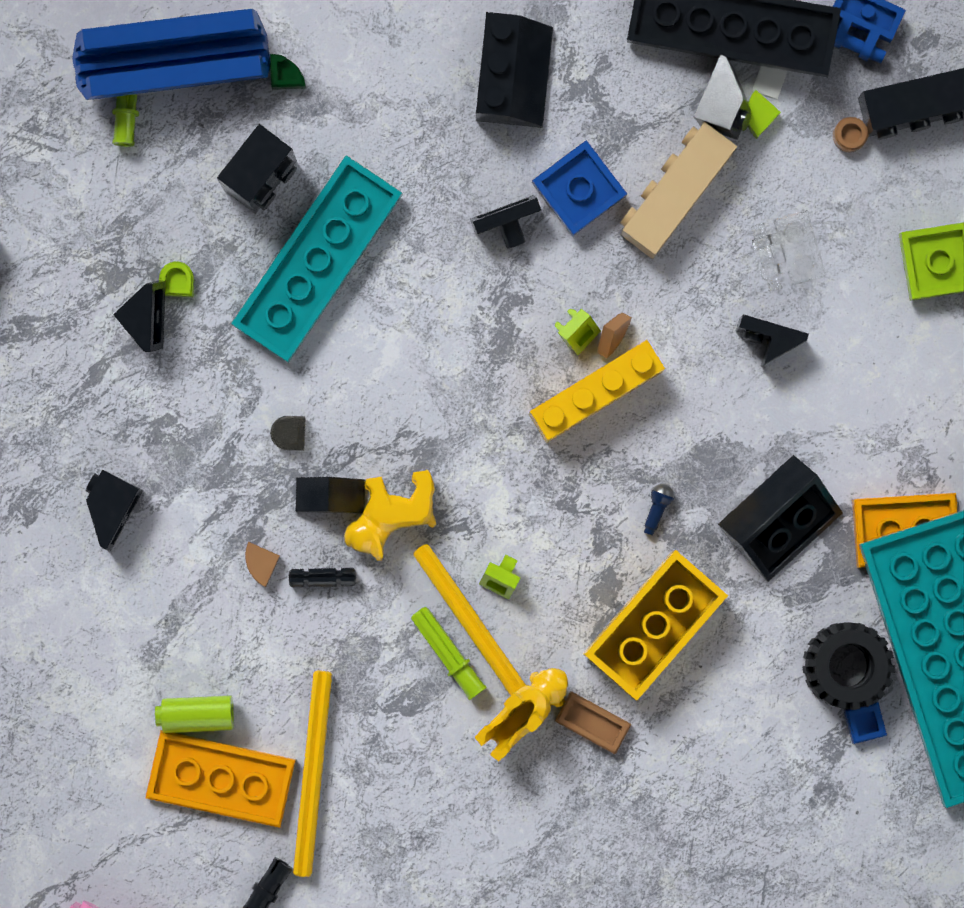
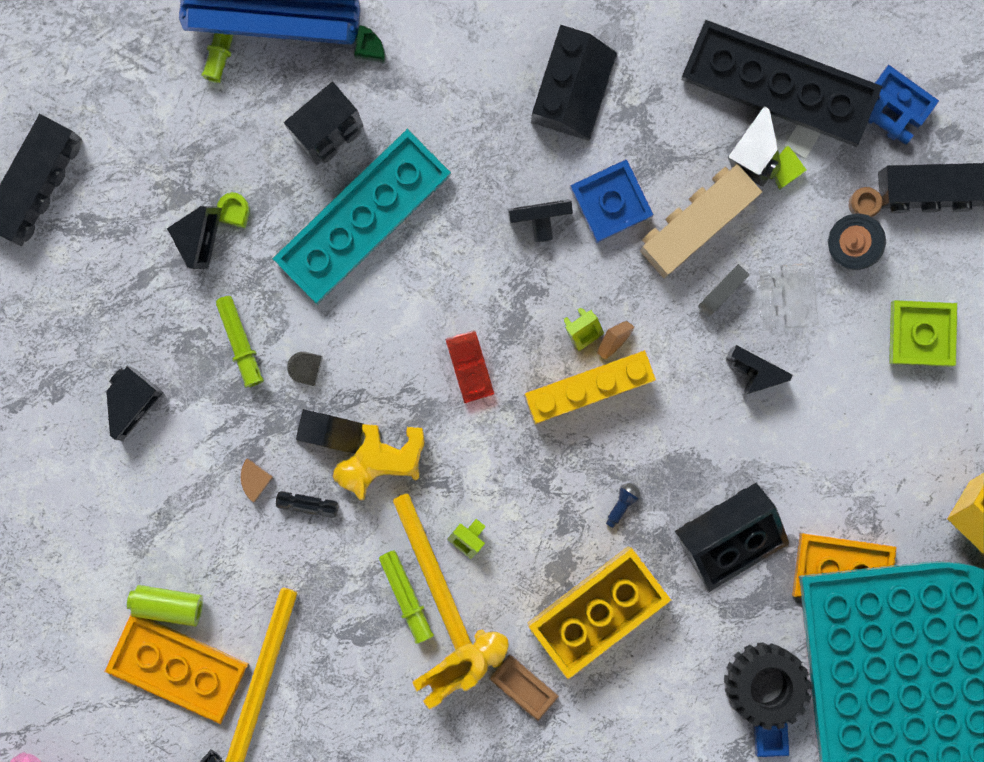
camera: 15 degrees right, 0 degrees up
(214, 420) = (243, 354): none -> lime axle
(465, 395) = (469, 366): none -> clear red slope
(718, 259) = (723, 290): none -> dark grey beam
(848, 178) = (856, 241): none -> black wheel

